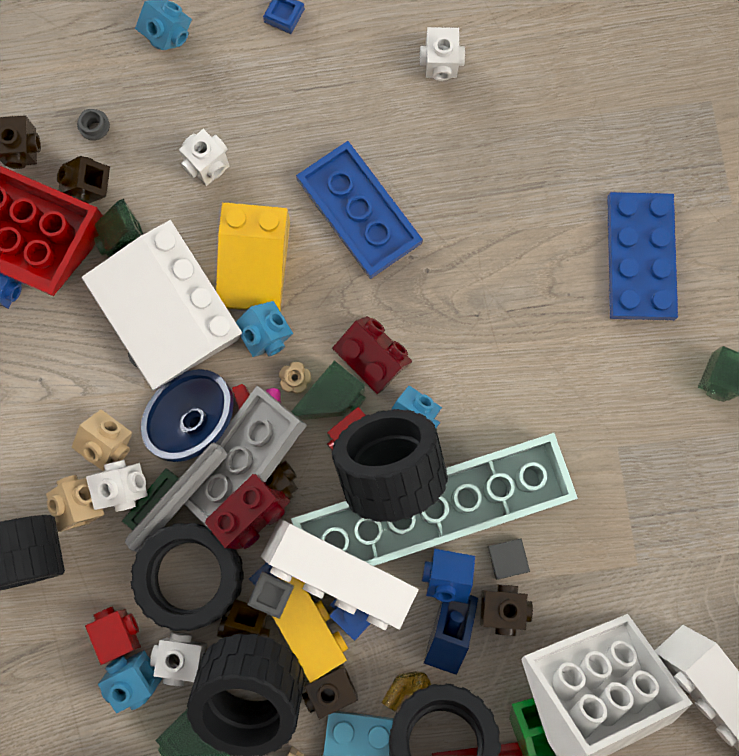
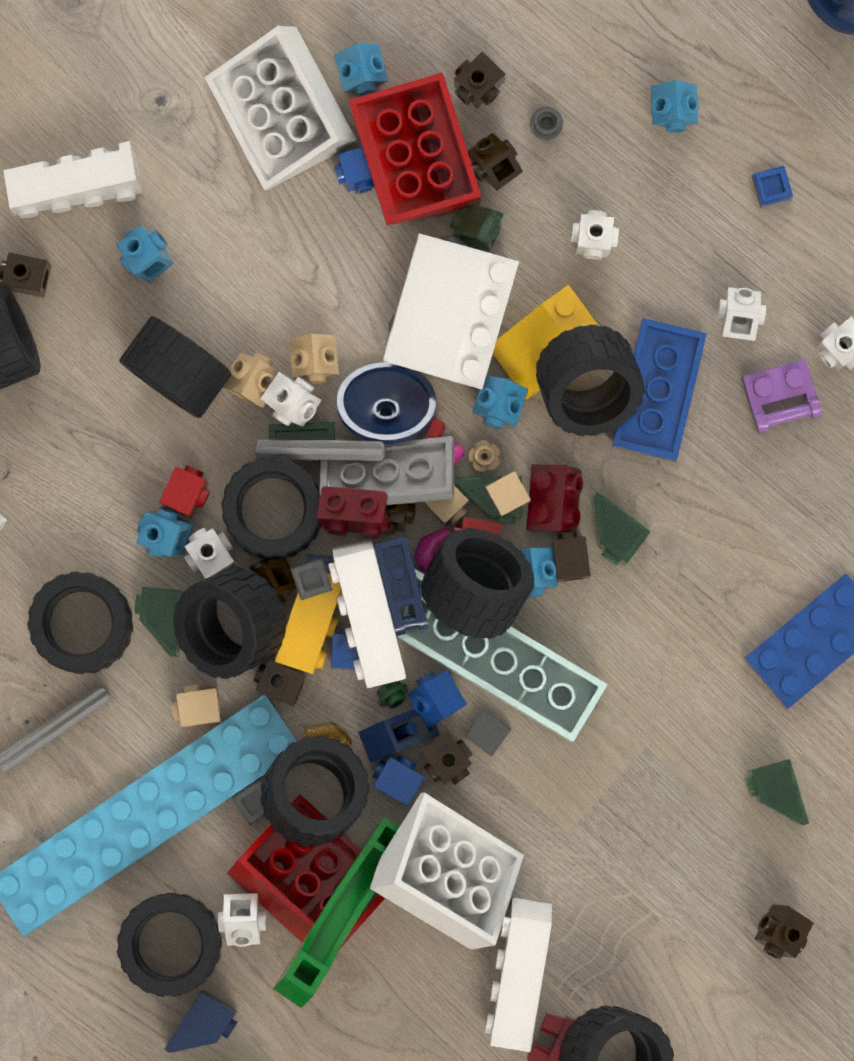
camera: 50 degrees right, 5 degrees up
(310, 439) = (450, 509): none -> tan brick
(325, 479) = (428, 546): none -> dark pink arm
(337, 250) = (600, 407): none -> black tyre
(337, 526) = (400, 584): none -> dark blue plate
(339, 382) = (508, 494): none -> tan tile
(355, 103) = (741, 313): none -> white brick
(418, 609) = (392, 694): none -> dark green plate
(428, 377) = (571, 557): none -> dark brown brick
(430, 125) = (779, 385): none -> medium lavender plate
(437, 328) = (616, 531): none -> clear green slope
(488, 663) = (398, 779): none -> blue brick

